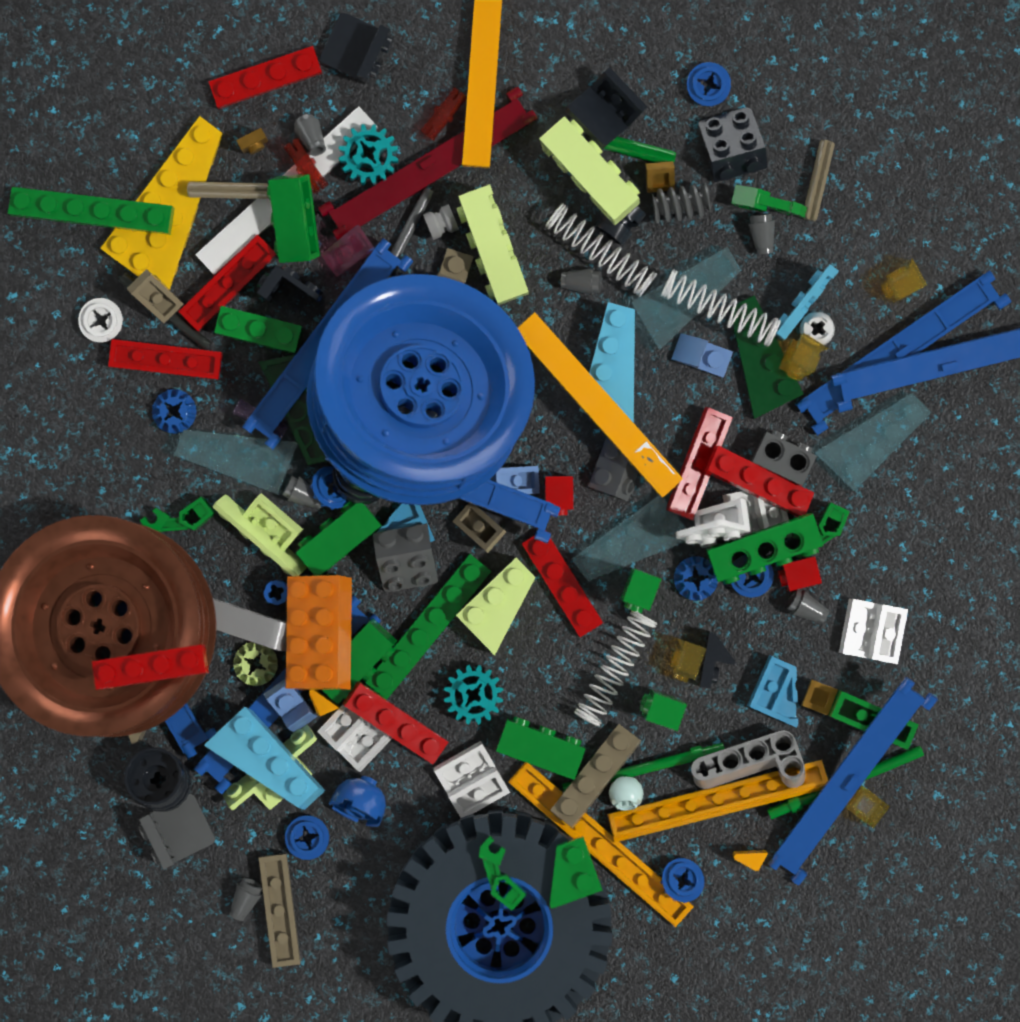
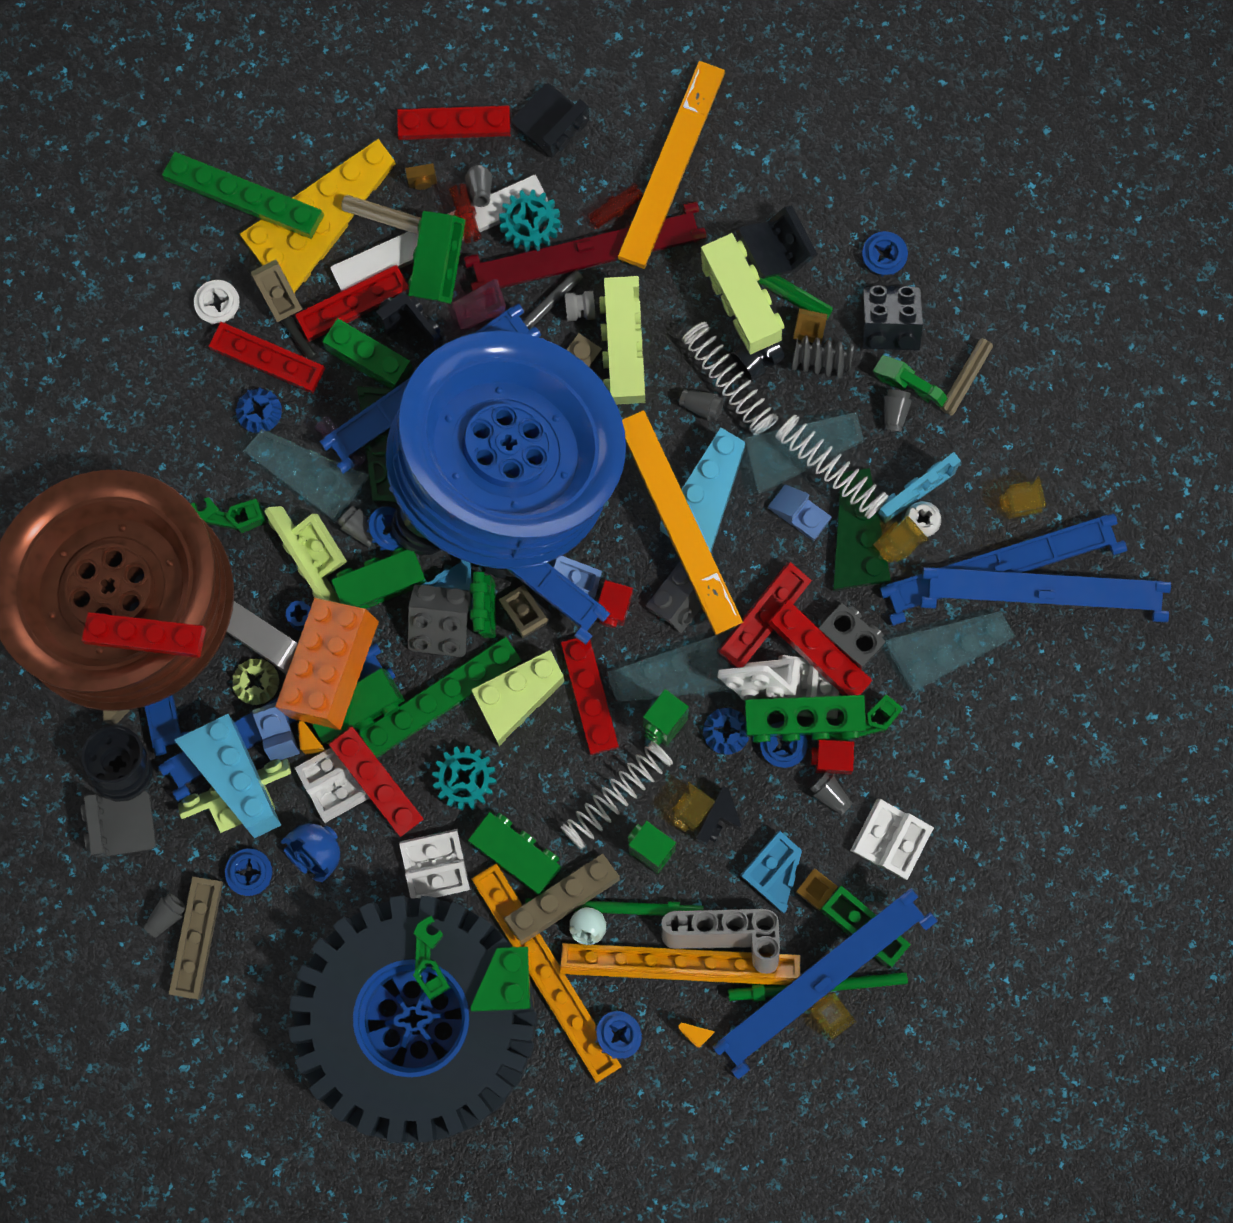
camera: 20 degrees right, 10 degrees down
(442, 532) = (483, 609): none -> green plate

